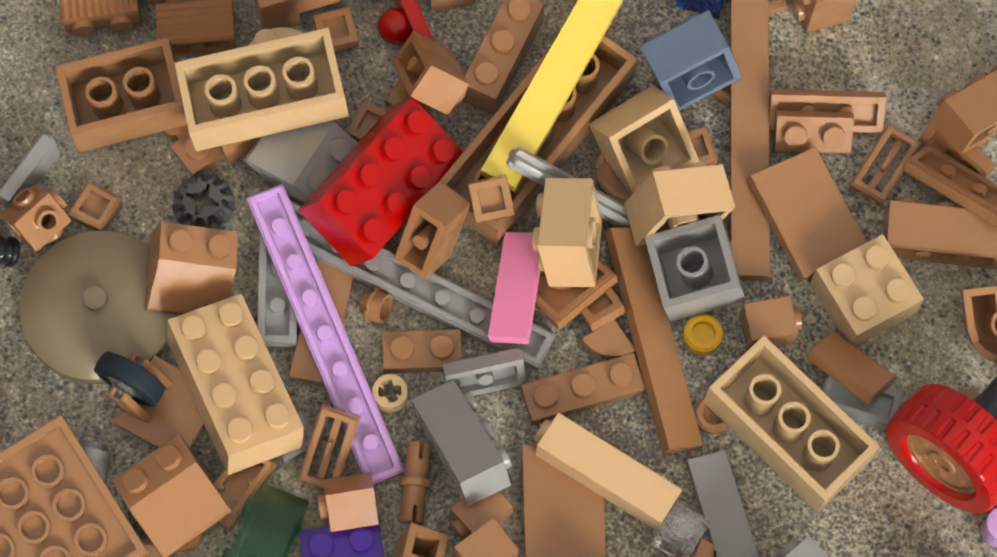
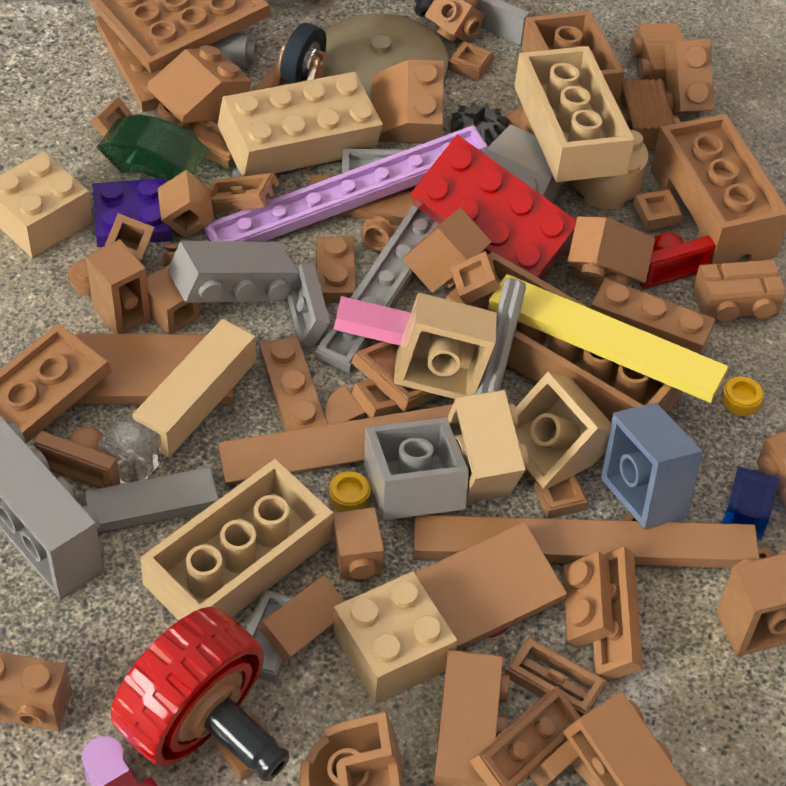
camera: 90 degrees right, 20 degrees down
(397, 384) = (297, 235): tan bush -> none

